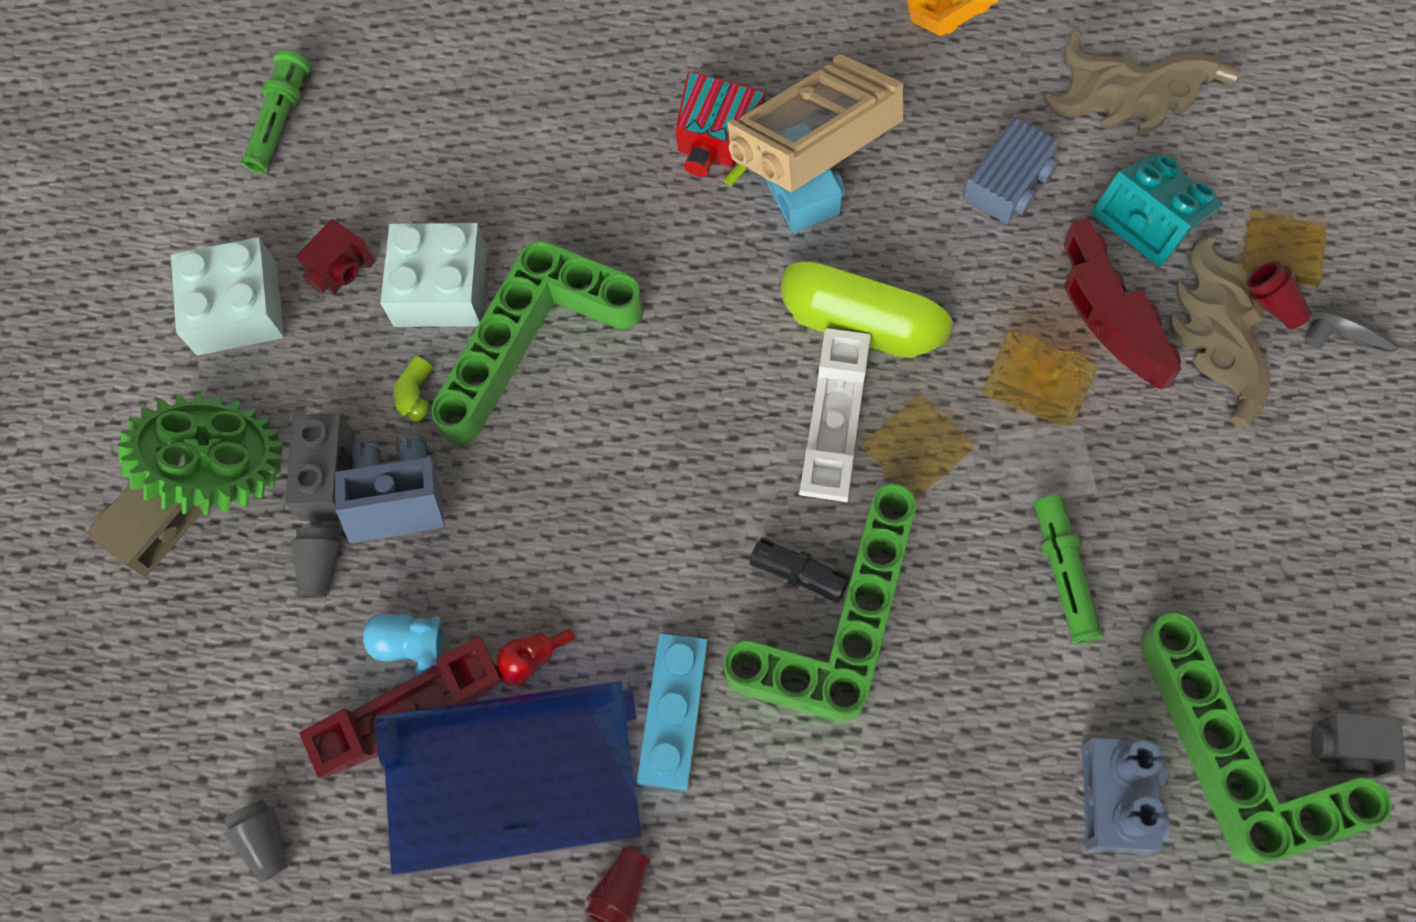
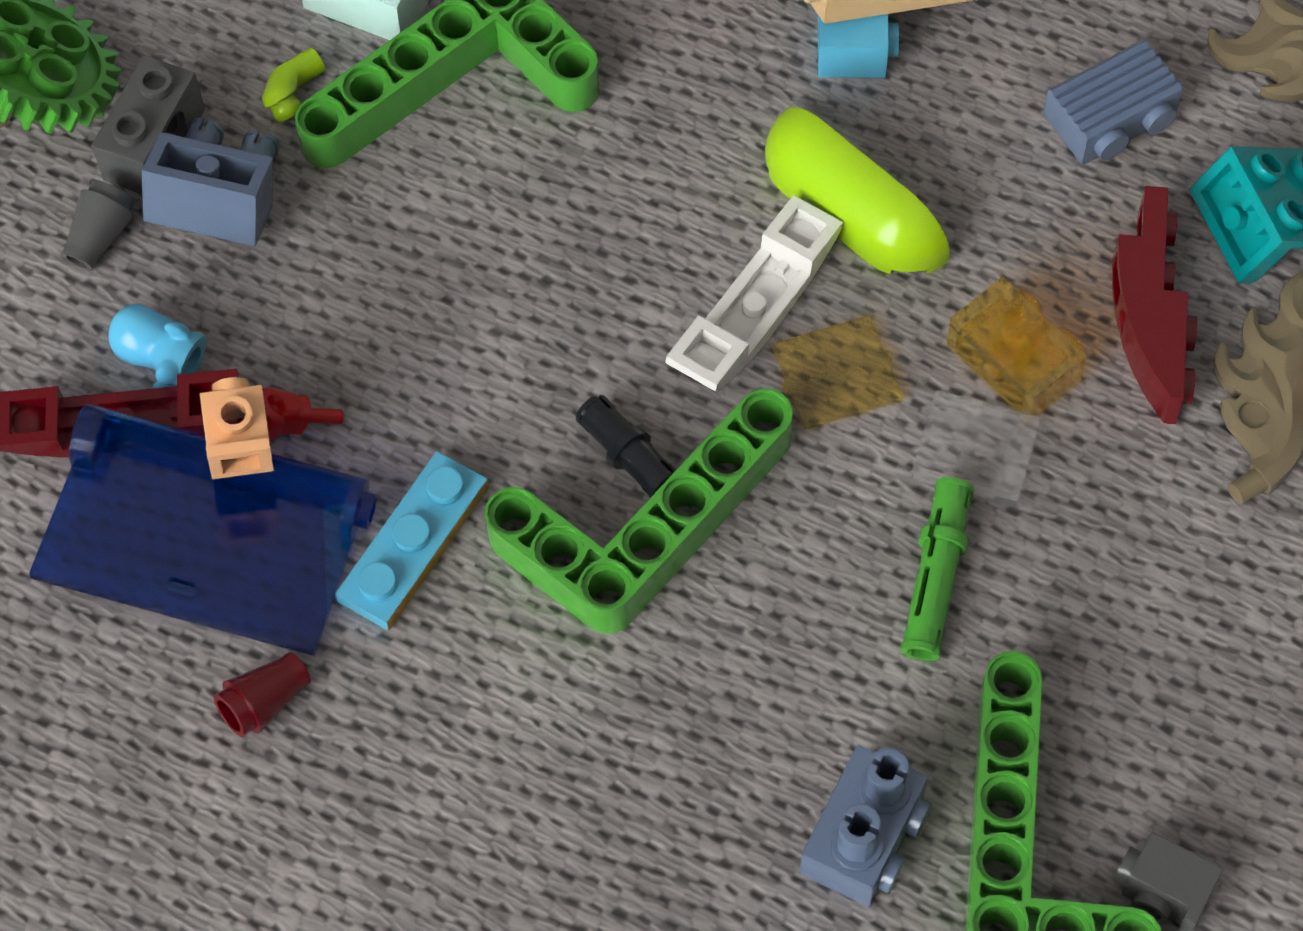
camera: 20 degrees right, 5 degrees down
(512, 709) = (241, 446): none -> light nougat brick

